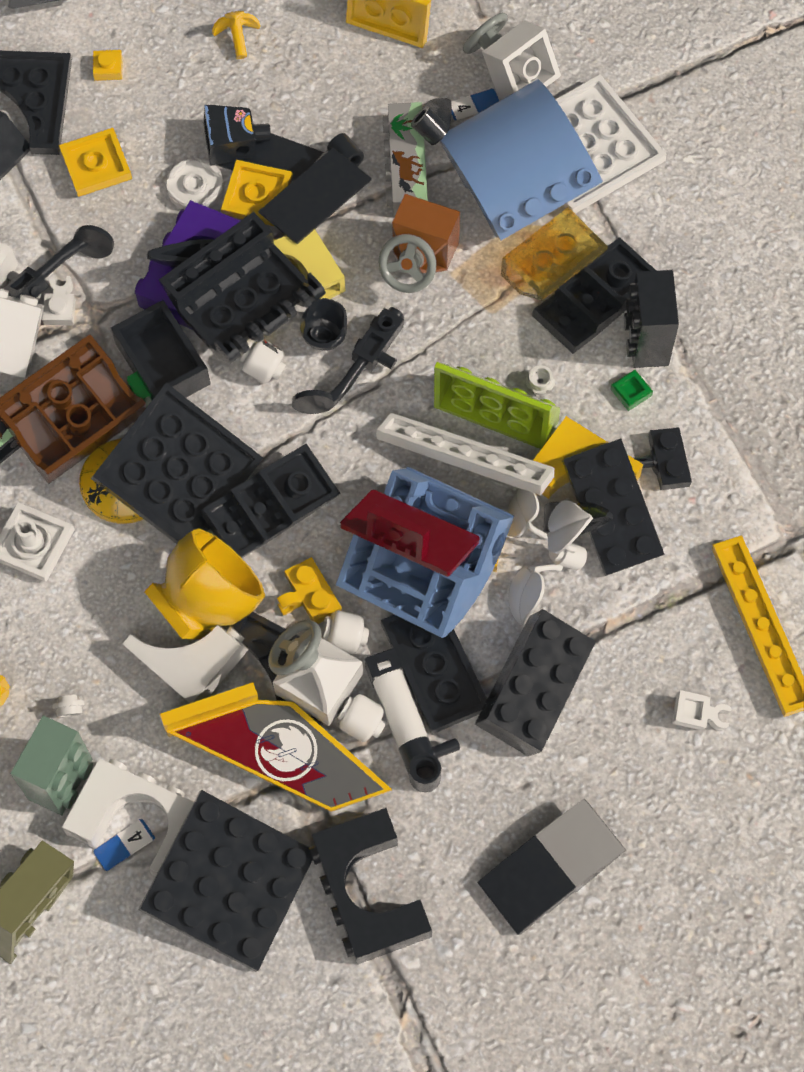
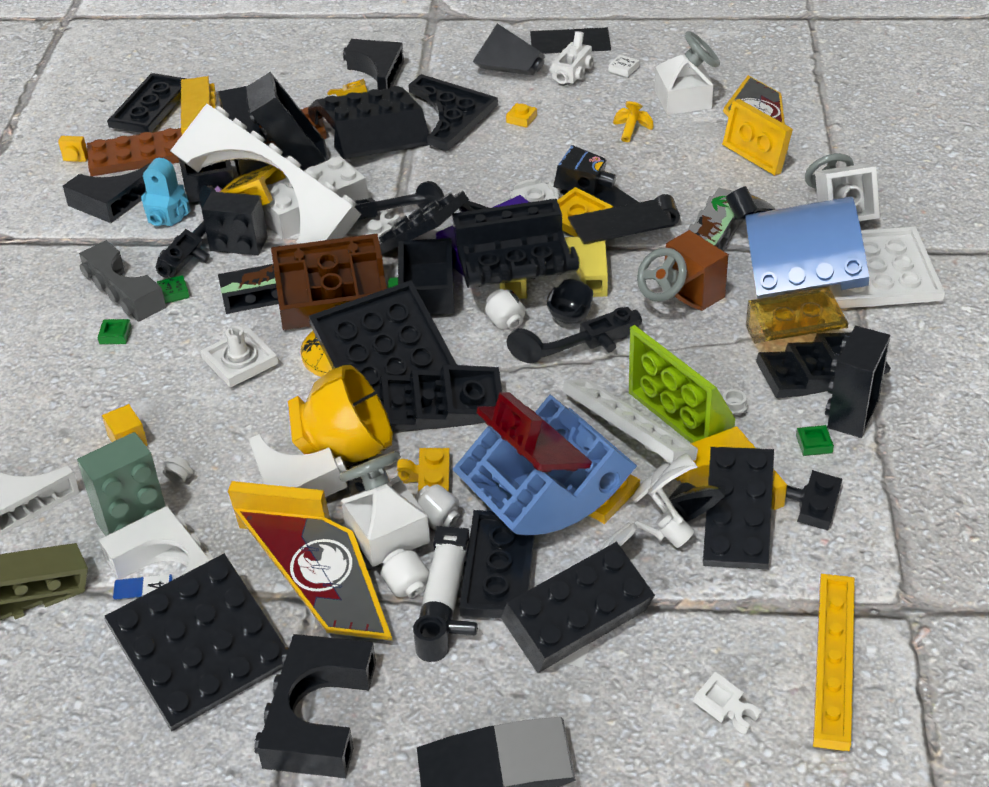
camera: 30 degrees right, 25 degrees down
(95, 162) = (469, 160): yellow plate -> none
(119, 293) = (422, 221): none -> black plate

